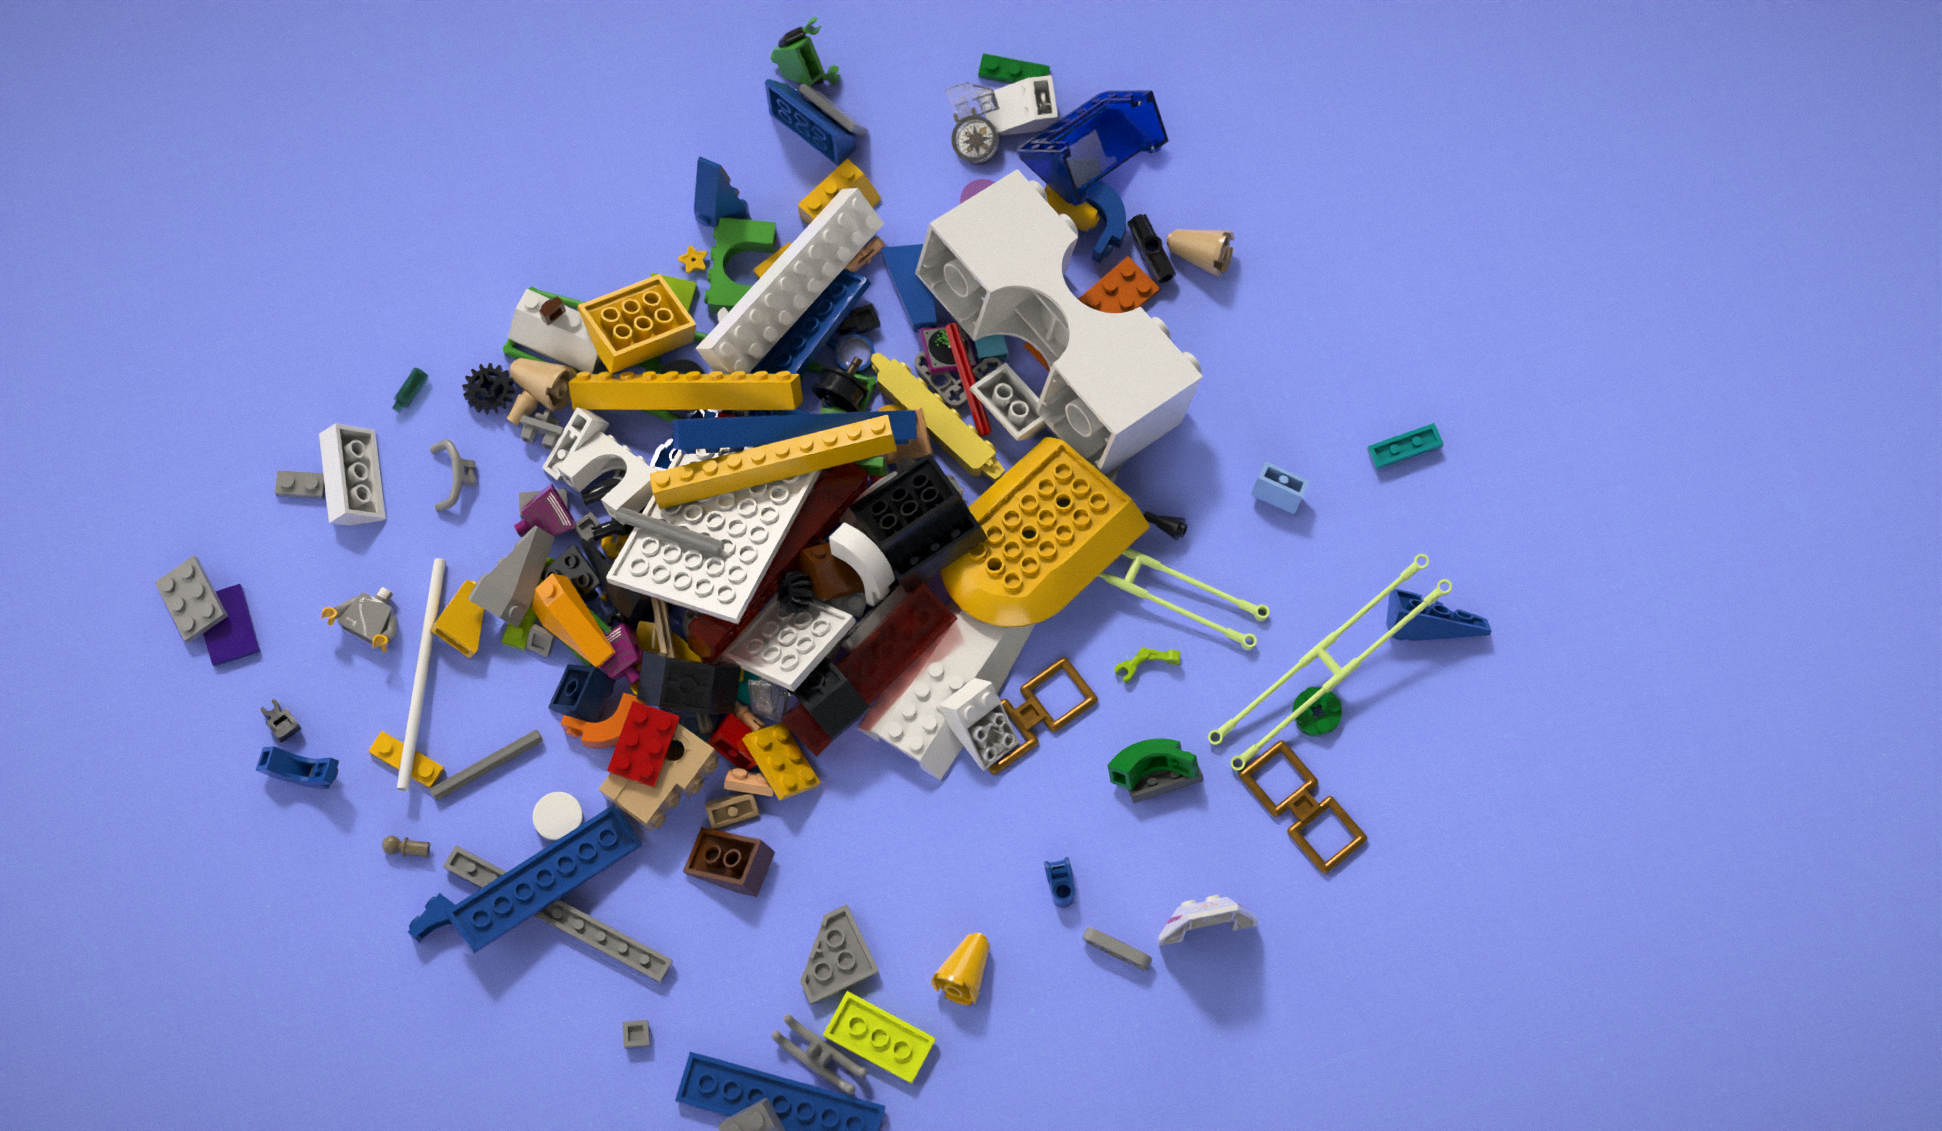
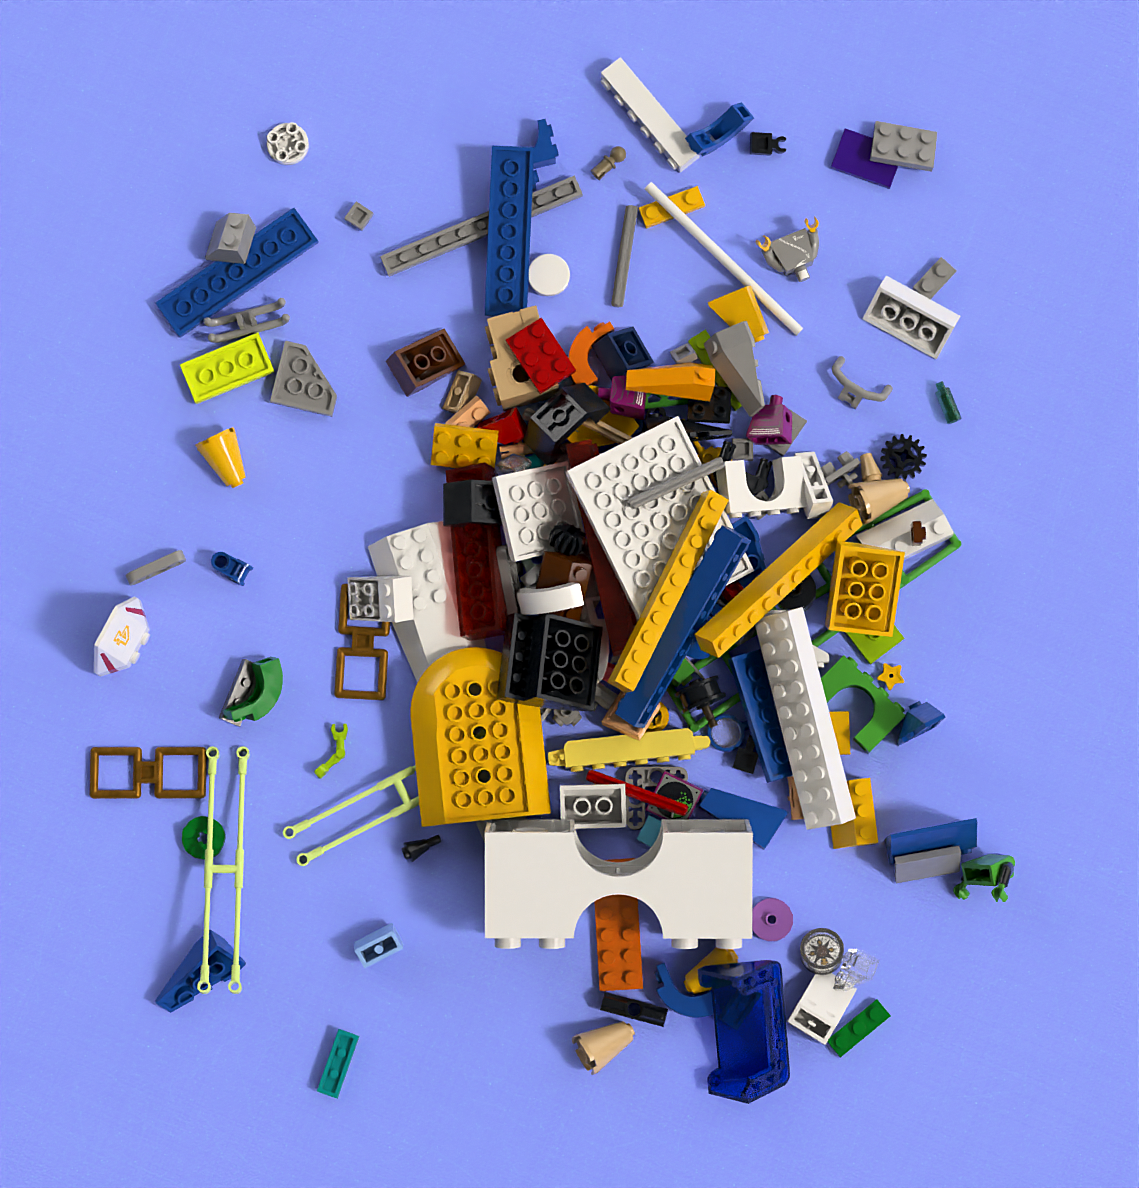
camera: 130 degrees right, 10 degrees up
(330, 846) = (649, 114): none -> white brick

